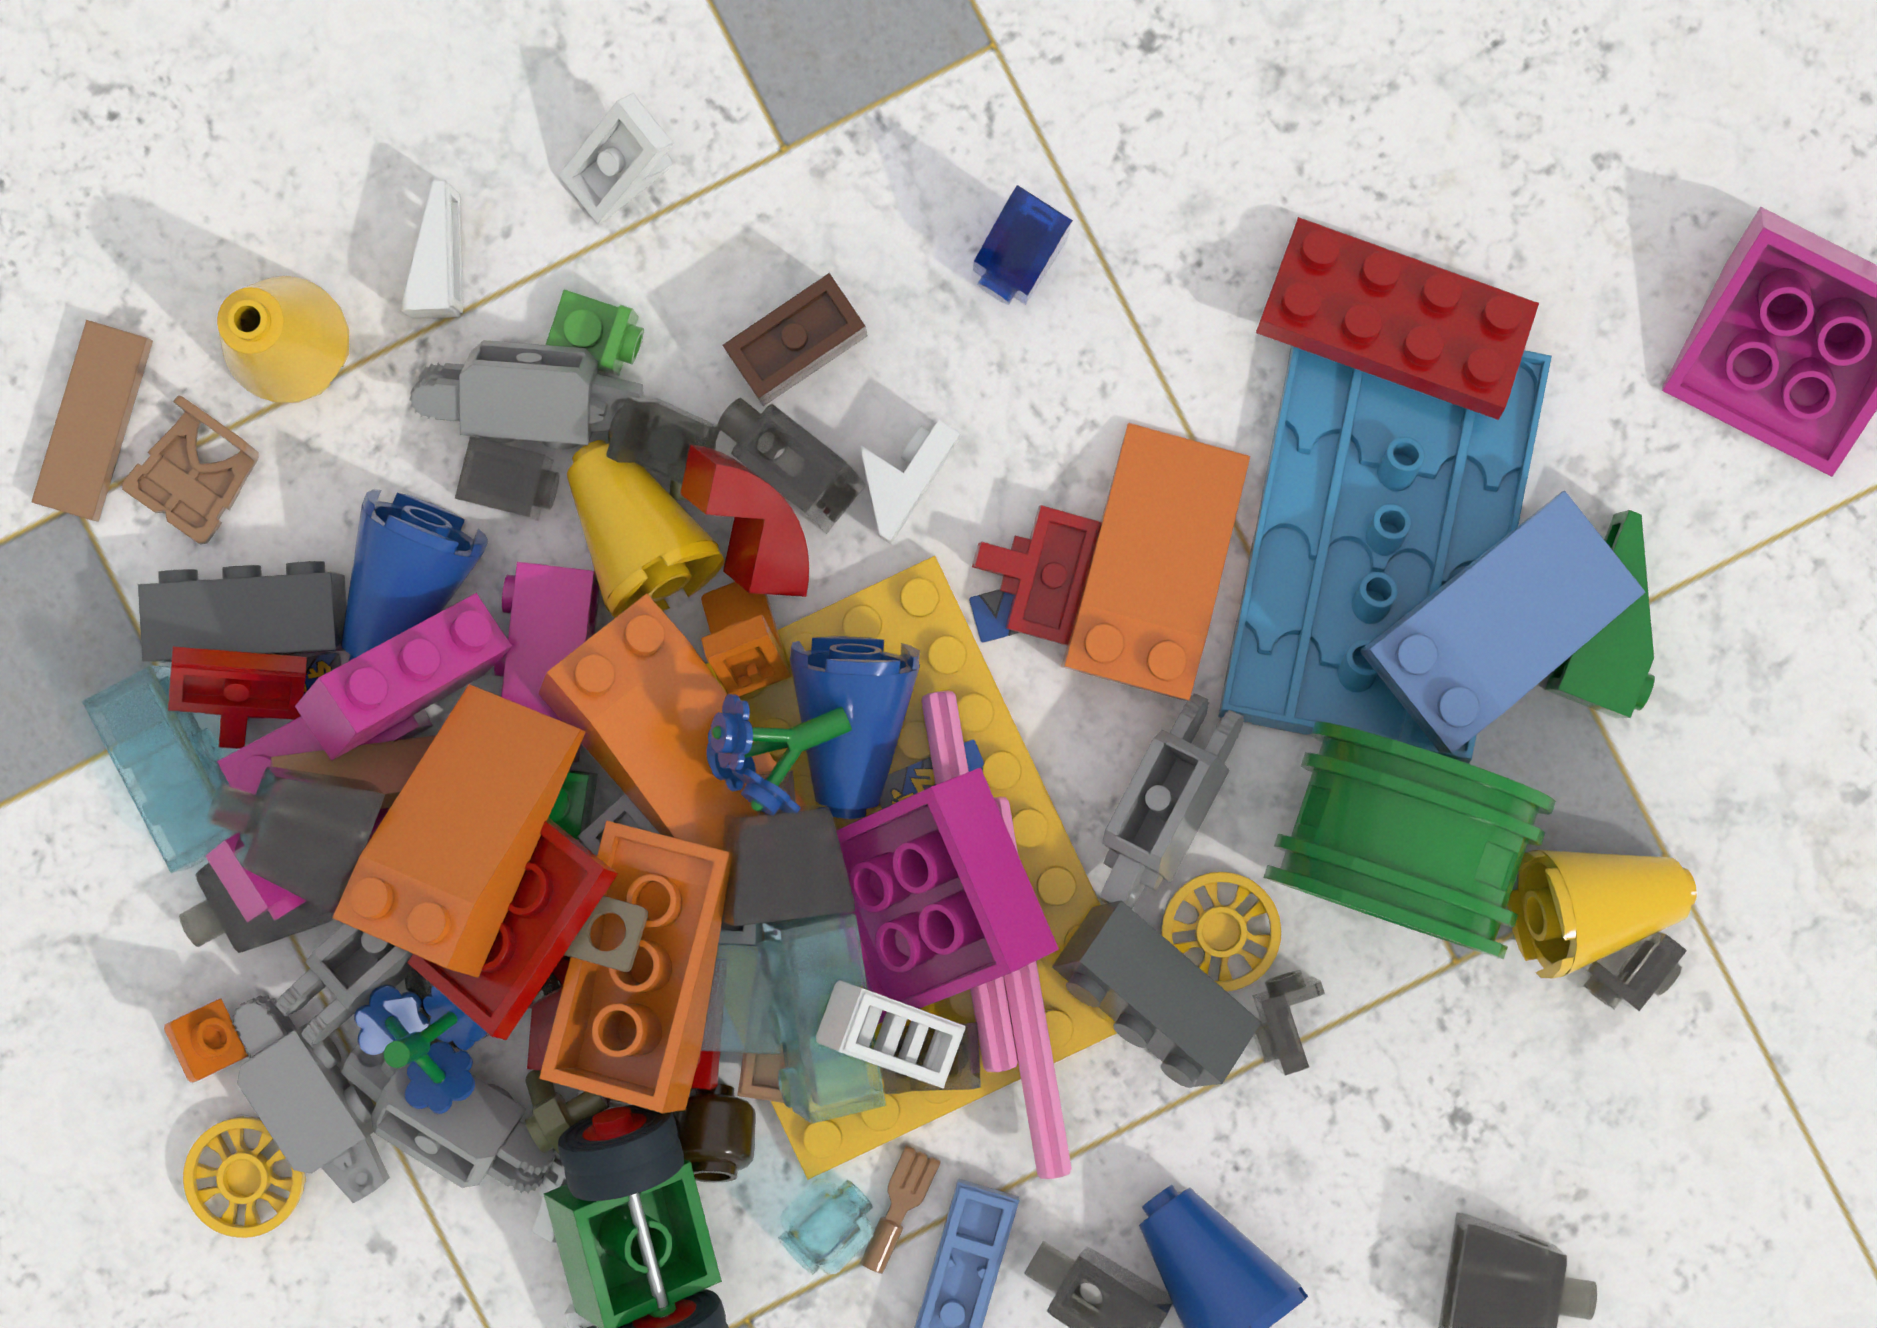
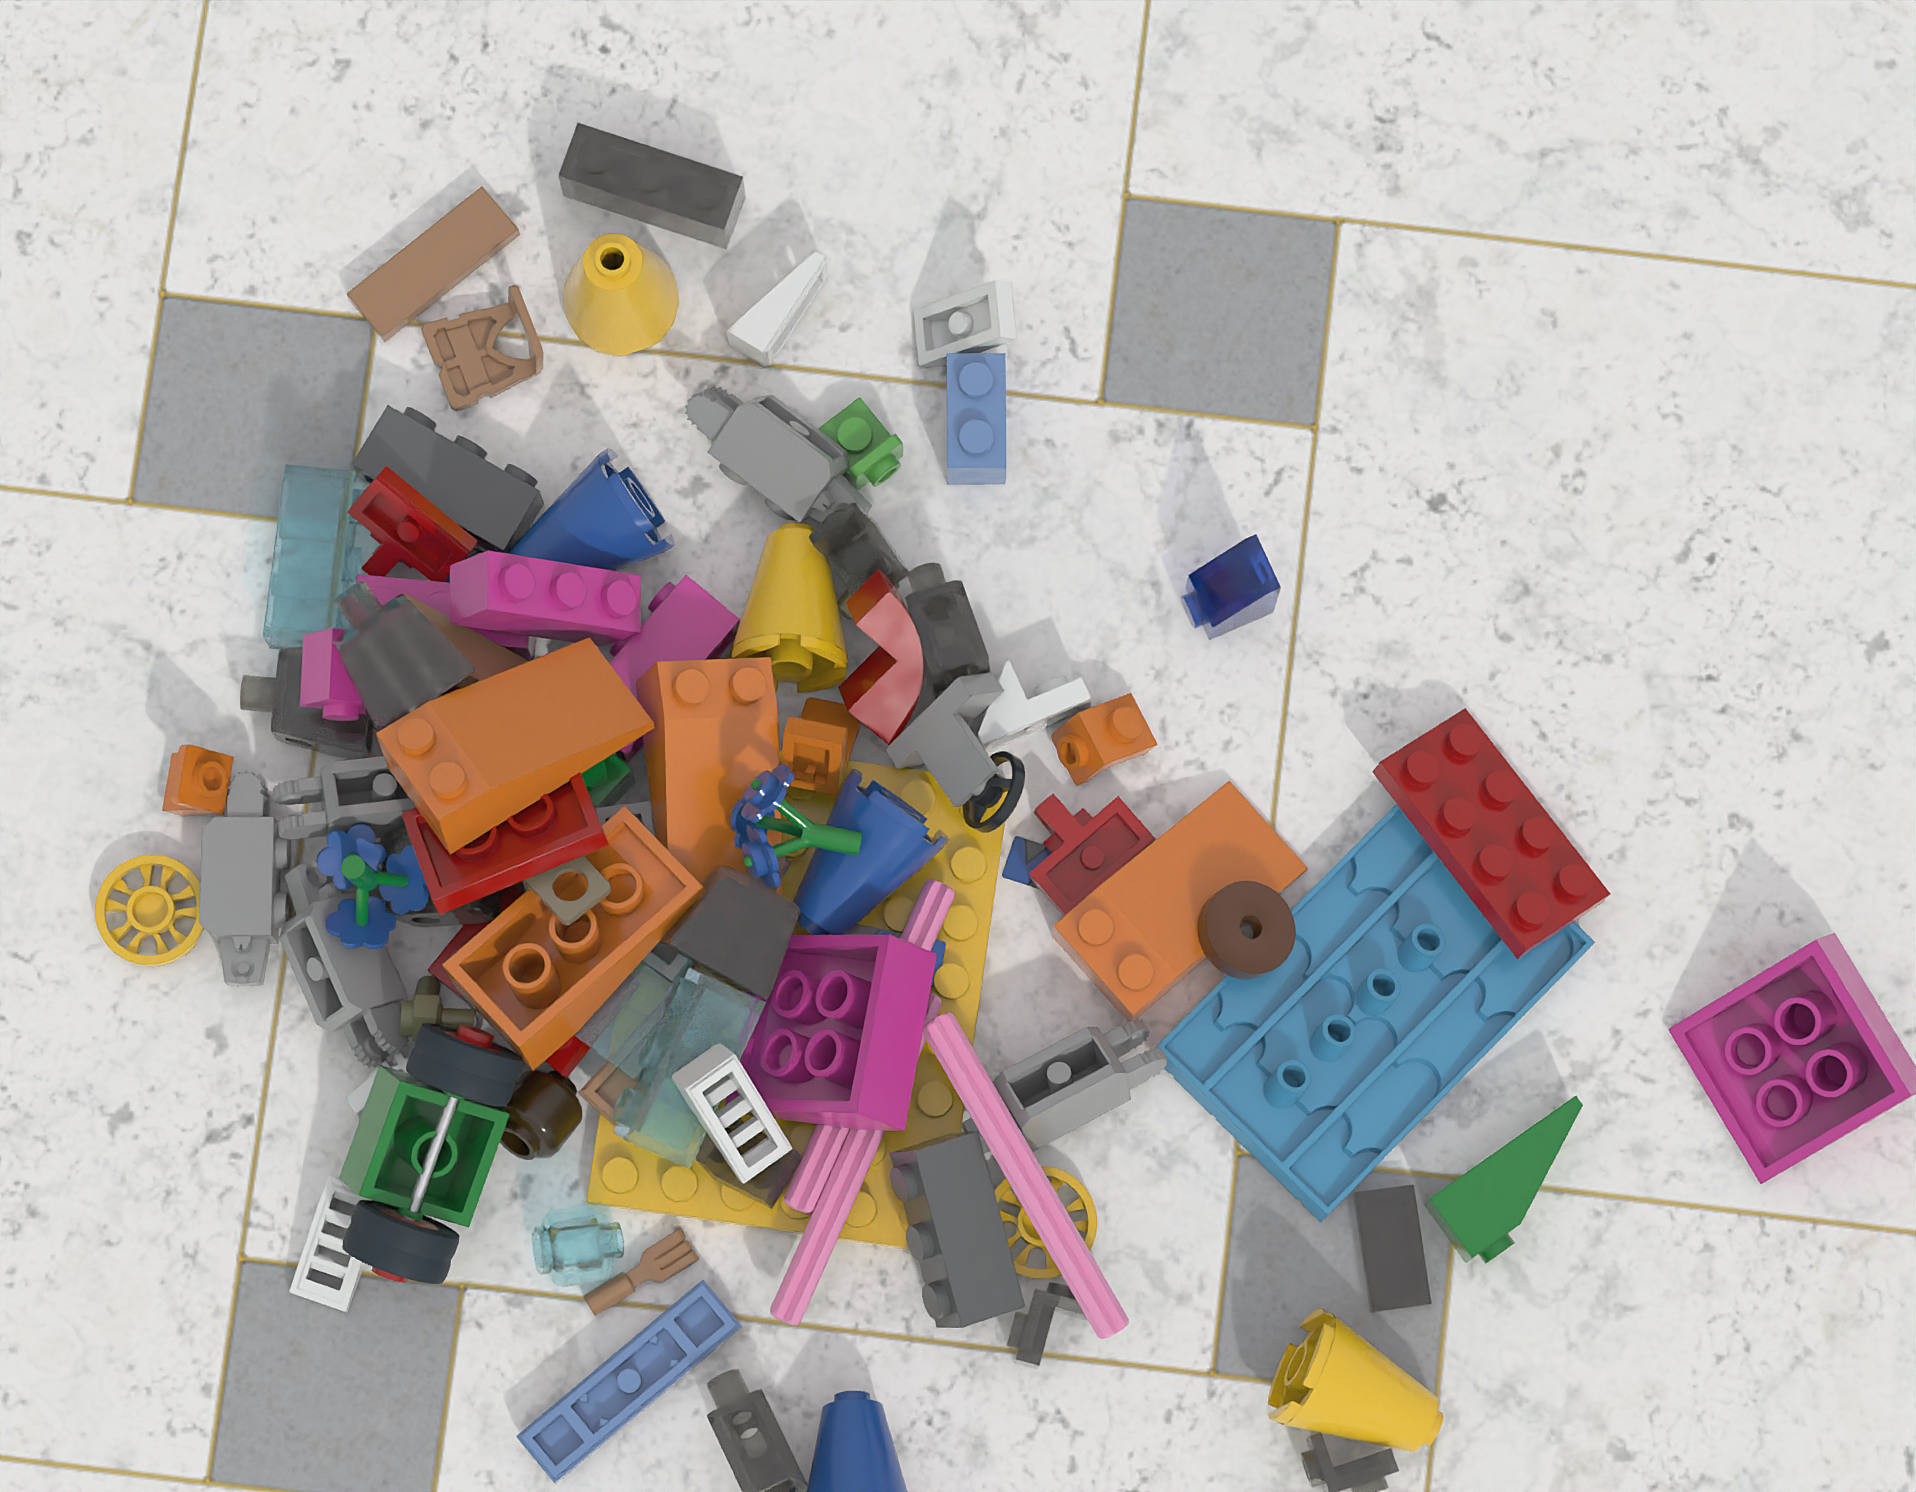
camera: 30 degrees right, 10 degrees down
(240, 217) = (652, 185): none -> clear smoke brick
(507, 479) = (719, 510): clear smoke brick -> none
(683, 240) = (976, 418): none -> medium blue brick
(796, 339) = (1012, 548): reddish brown panel -> none
(875, 570) = (956, 757): none -> light grey piece
(991, 459) = (1102, 738): none -> orange bracket
(1188, 910) = (1025, 1175): none -> bright pink axle
(1219, 572) = (1228, 947): none -> reddish brown piece
(1410, 837) = (1232, 1225): green wheel -> none
(1502, 624) = (1417, 1113): medium blue slope -> none
(1548, 752) = (1392, 1248): none -> clear smoke tile

